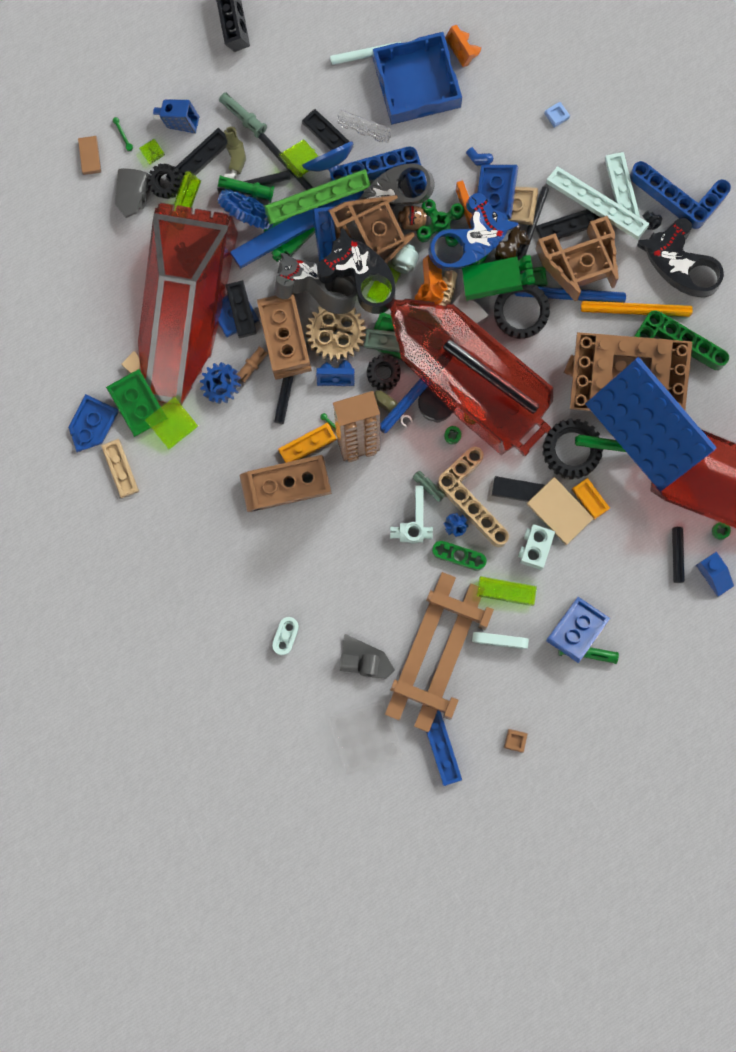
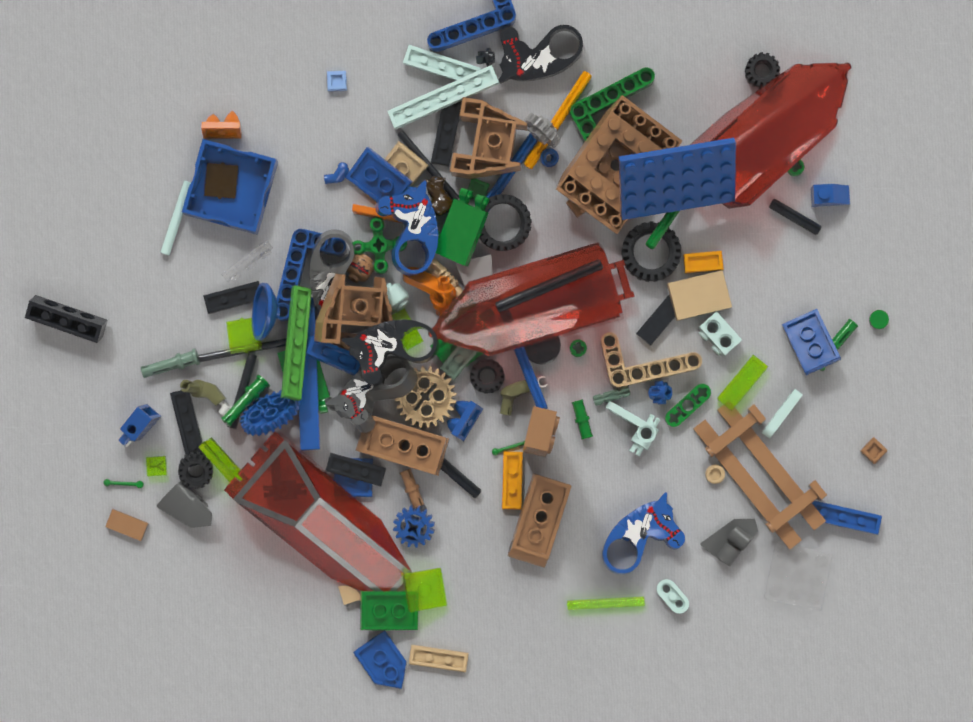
camera: 55 degrees left, 5 degrees up
(247, 582) = (605, 603): none -> clear neon green piece
(331, 572) = (646, 521): none -> blue animal
(394, 472) = (582, 419): none -> green pin
(413, 613) = (715, 474): none -> tan tile
(418, 70) = (221, 180): none -> dark brown piece
(606, 319) = (554, 157): none -> blue plate
(620, 295) = (542, 130): none -> light grey gear
(633, 679) = (879, 319): none -> green tile

